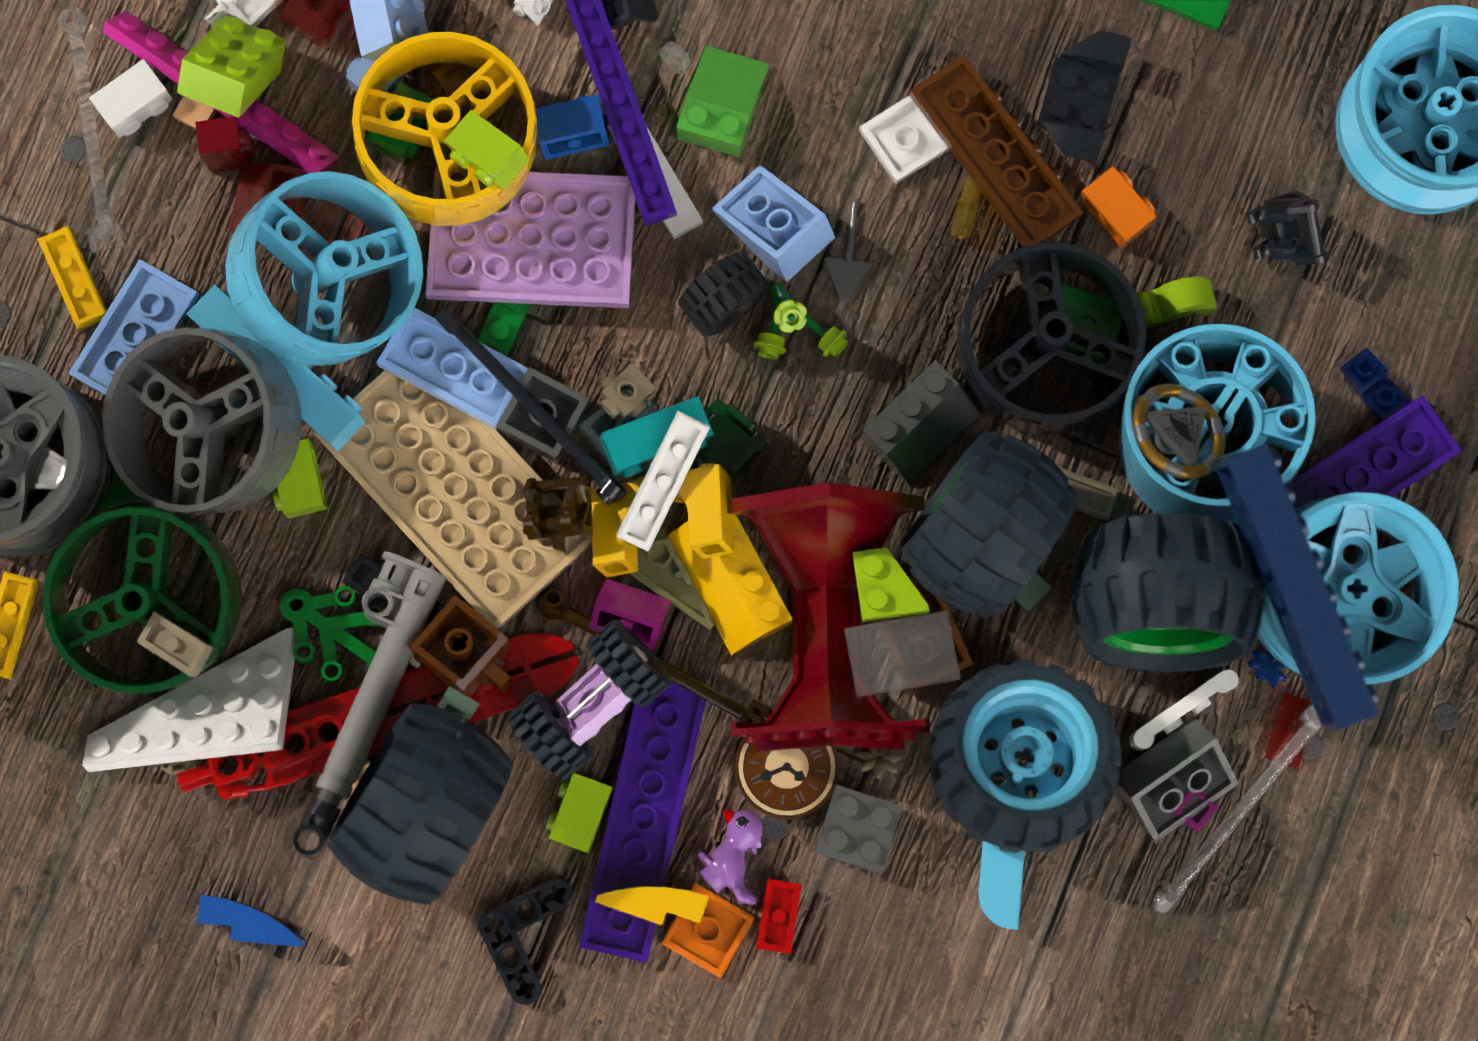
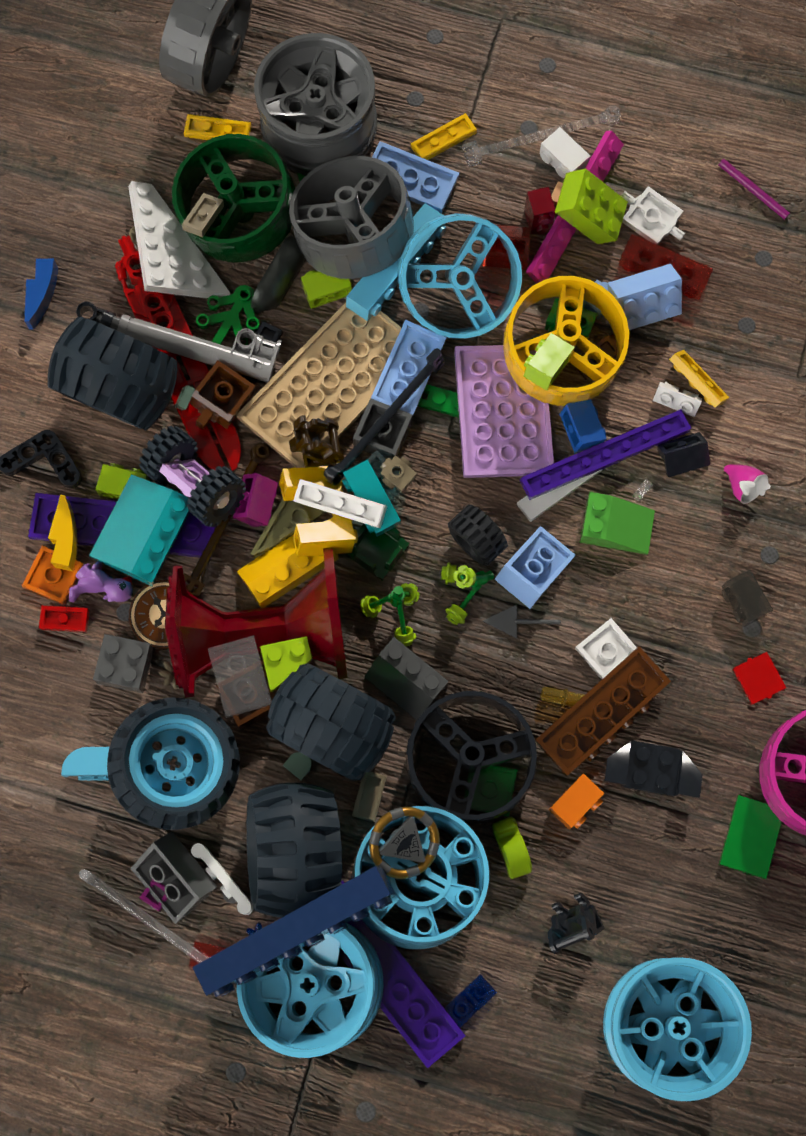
camera: 85 degrees right, 5 degrees down
(272, 548) = (278, 276): none -> pearl dark grey brick
(660, 783) = (141, 529): none -> teal slope
(797, 410) = (400, 595): none -> lime plant

